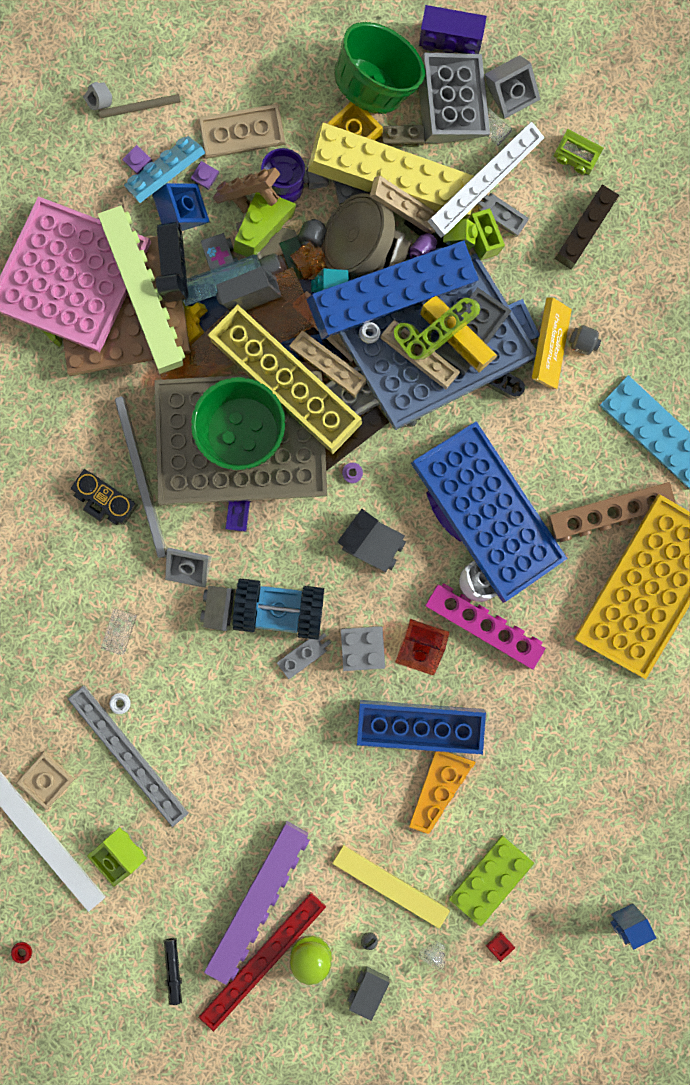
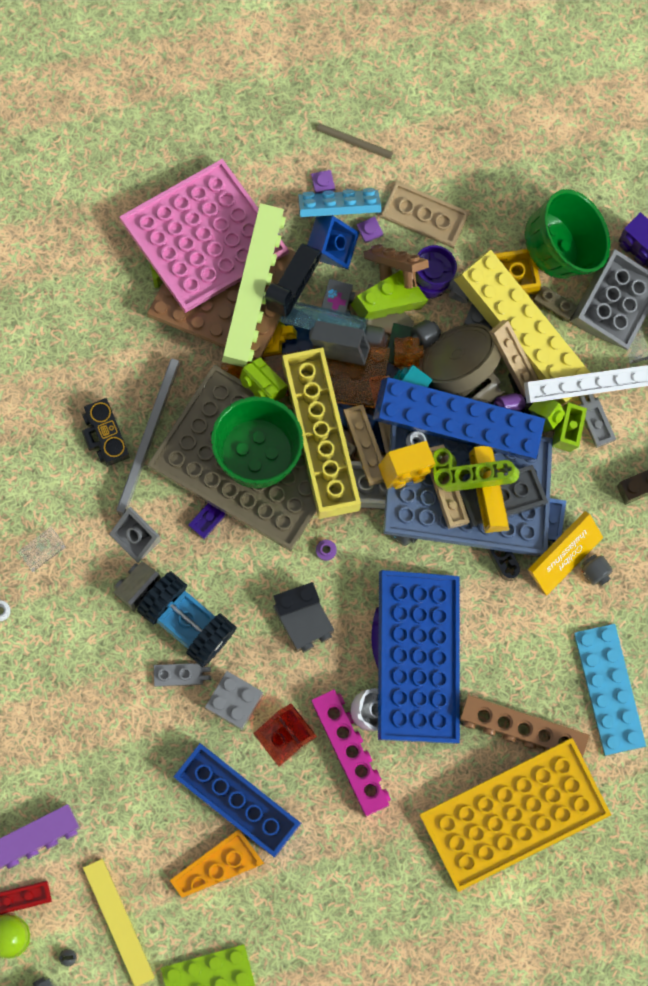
camera: 30 degrees right, 10 degrees down
(98, 96) = (325, 112): light grey plate -> none
(206, 367) = (263, 380): none -> lime brick
(371, 424) = (351, 522): dark brown plate -> none
(377, 359) = (406, 465): none -> yellow brick

